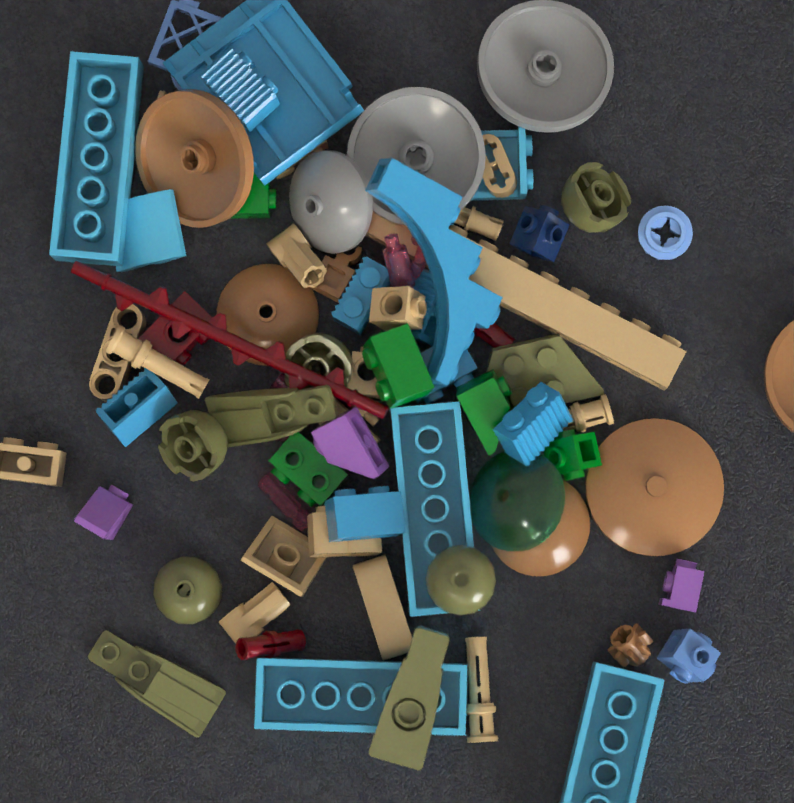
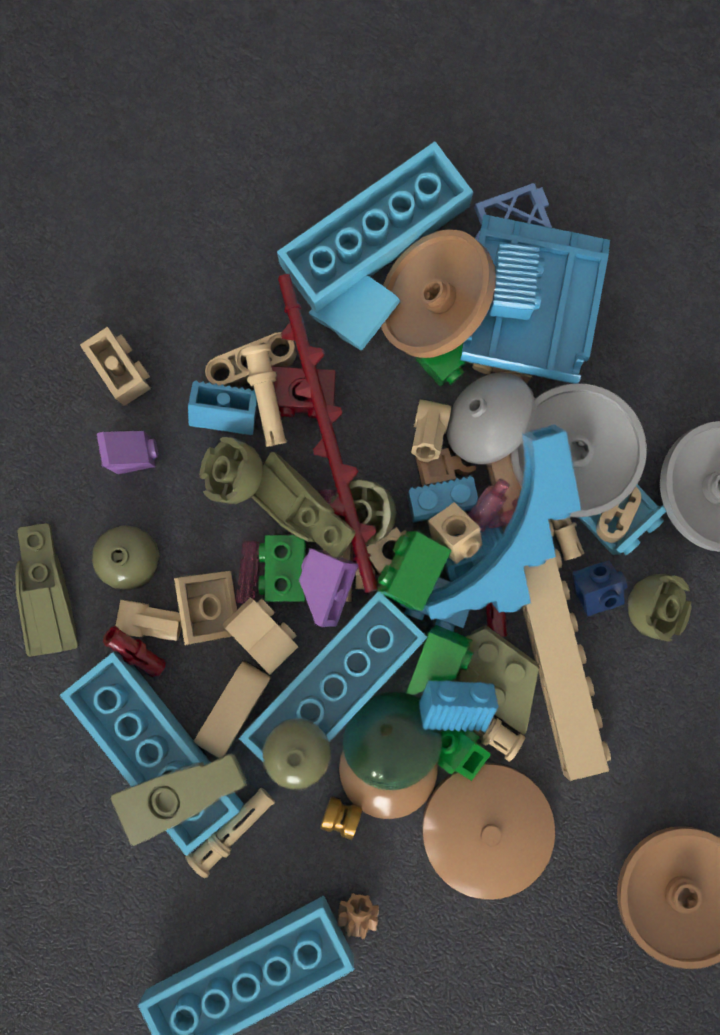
camera: 40 degrees right, 0 degrees up
(274, 286) = (391, 426): medium nougat dish -> none
(364, 515) = (283, 641): dark azure brick -> none
(536, 597) = (334, 814): none -> pearl gold wheel
(679, 225) = (692, 682): light blue gear -> none
(682, 586) = (434, 917): medium lavender brick -> none
(689, 656) = (387, 968): medium blue brick -> none

